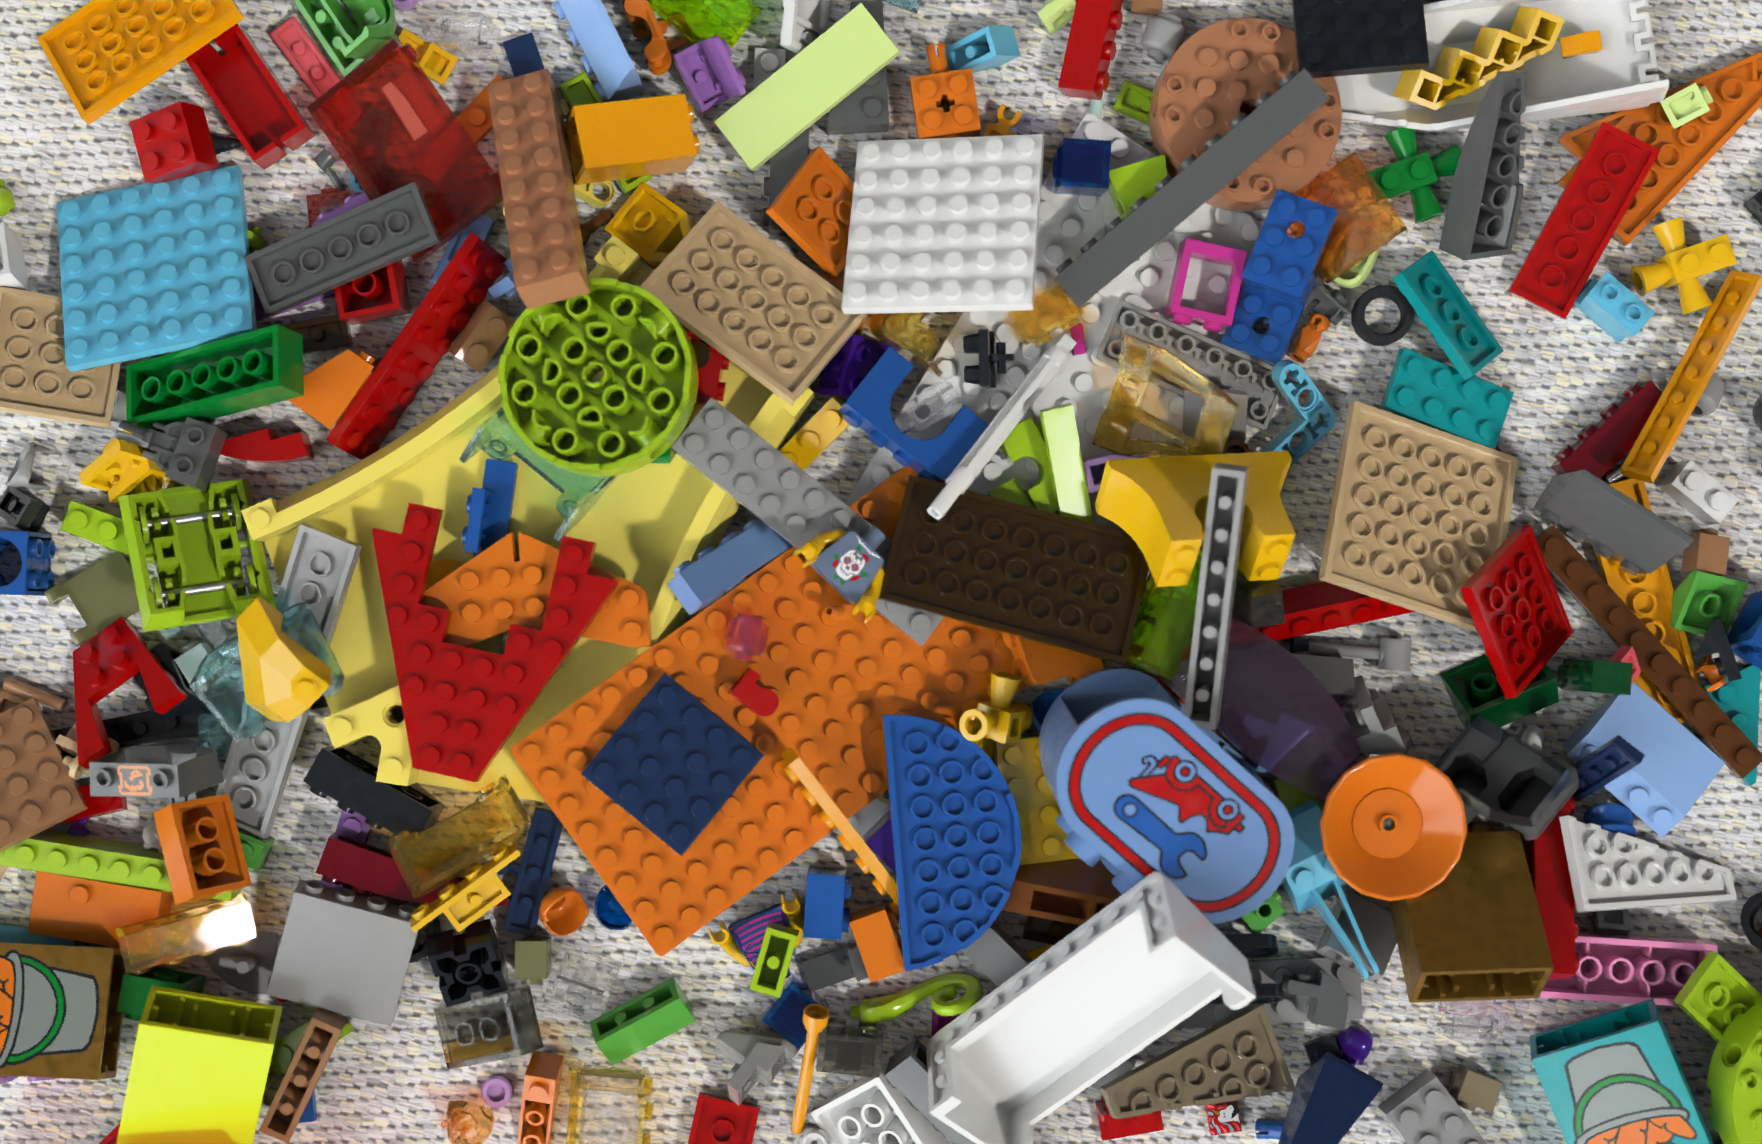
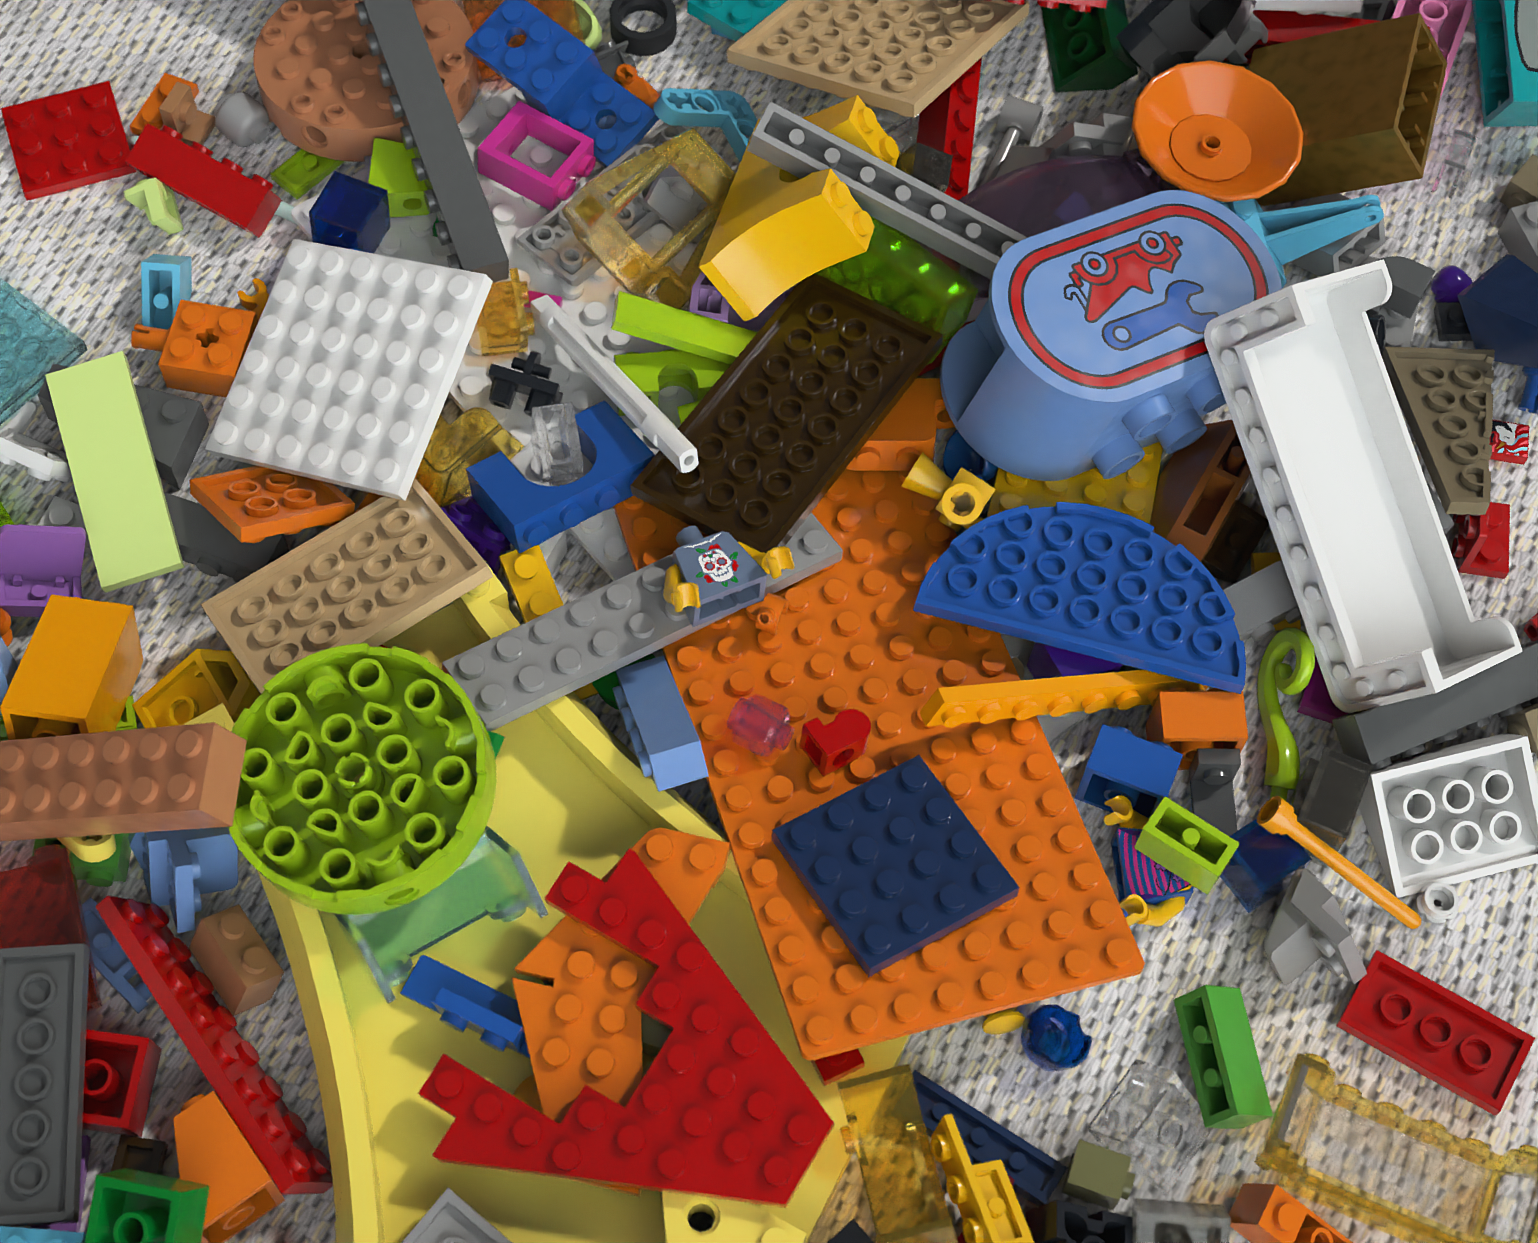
camera: 70 degrees left, 25 degrees down
(563, 910) = (1042, 1114): orange hair -> none

